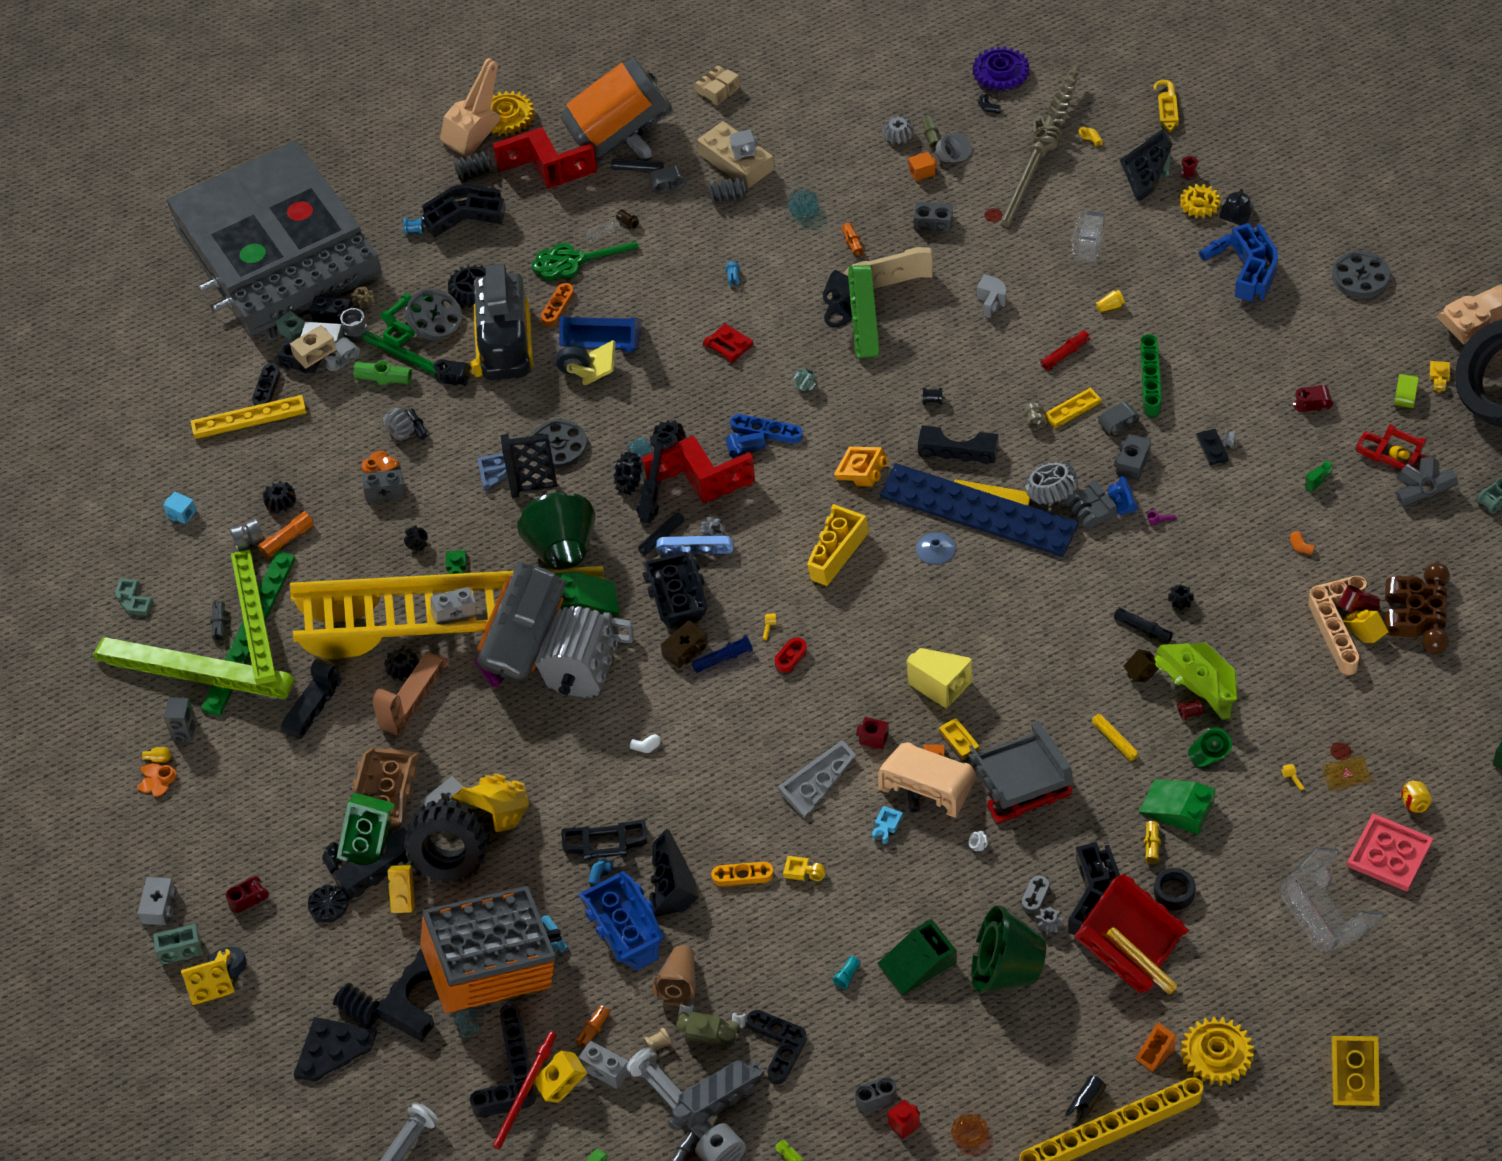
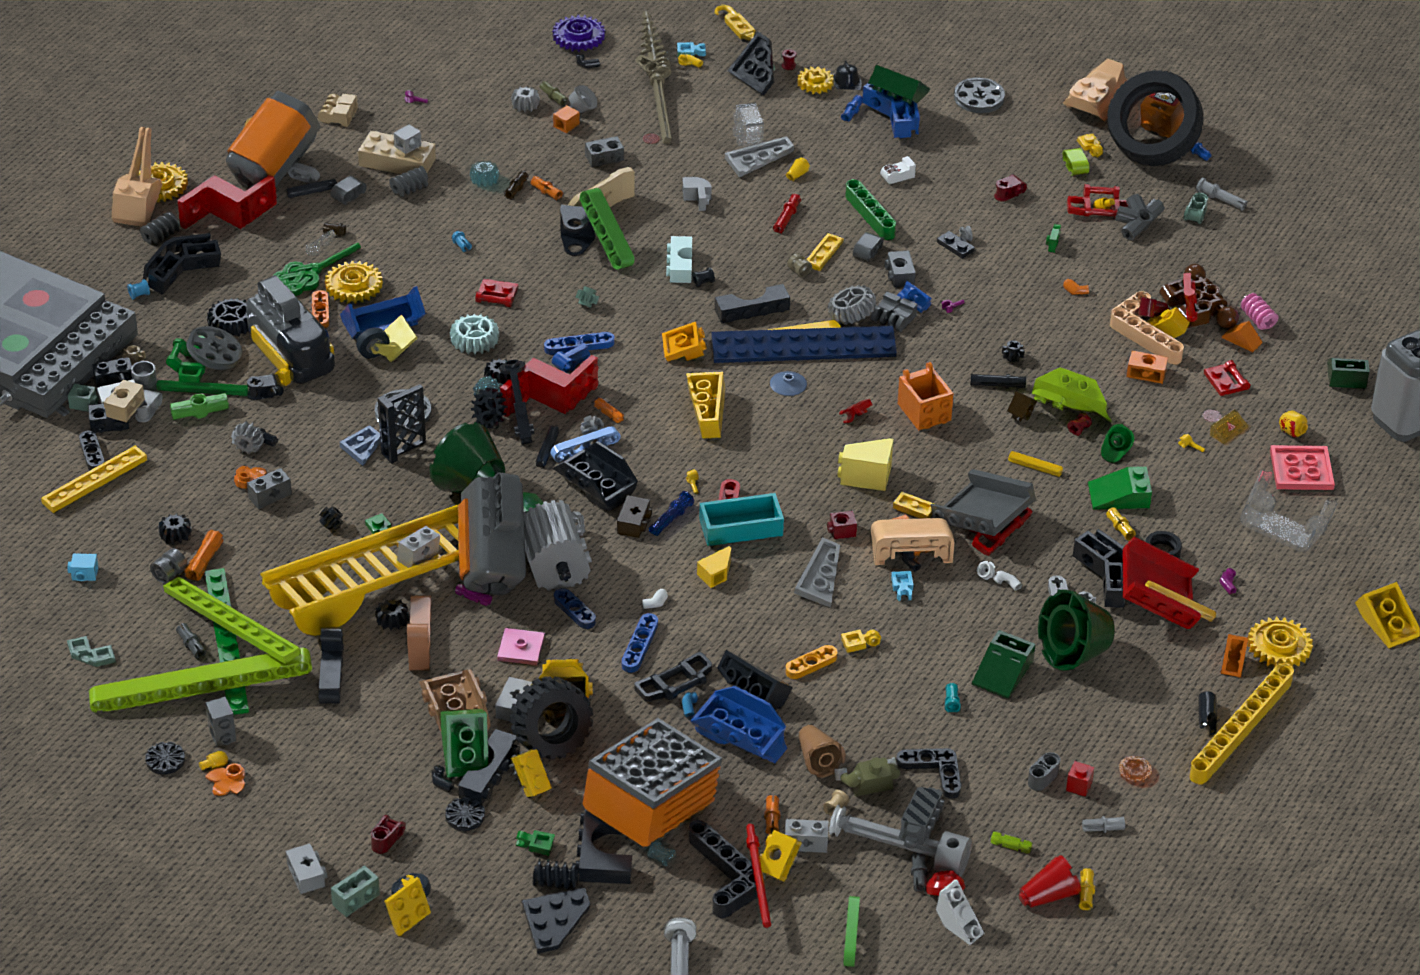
camera: 35 degrees left, 10 degrees down
(121, 734) = (165, 758): none -> black wheel
(368, 963) = (539, 842): none -> green plate
(493, 745) = (521, 646): none -> bright pink plate
(569, 716) = (573, 601): none -> dark blue beam
(598, 784) = (637, 642): none -> blue beam
(604, 285) = (353, 282): none -> yellow gear
(674, 383) = (474, 334): none -> light aqua gear
(723, 732) = (715, 567): none -> yellow slope
(743, 515) = (608, 410): none -> orange axle
(778, 688) = (741, 519): none -> teal piece
(794, 92) = (411, 98): none -> magenta hand
(825, 226) = (516, 185): none -> dark brown pin
(928, 356) = (679, 259): none -> light aqua arch
(979, 604) = (858, 408): none -> red plate
(995, 858) = (1009, 578): none -> white arm
(1047, 620) = (925, 397): none -> orange container
(1077, 272) = (753, 157): none -> light grey wing
(1099, 123) = (689, 48): none -> medium azure plate
(1210, 339) = (899, 171): none -> white leg
(1216, 953) = (1227, 581): none -> magenta arm
(1263, 240) = (898, 85): none -> dark green slope
(1298, 665) = (1147, 367): none -> orange brick
(1379, 713) = (1222, 382): none -> red plate
(1396, 605) = (1190, 297): none -> red plate
(1439, 670) = (1243, 336): none -> orange slope
(1475, 646) = (1259, 311): none -> bright pink piece

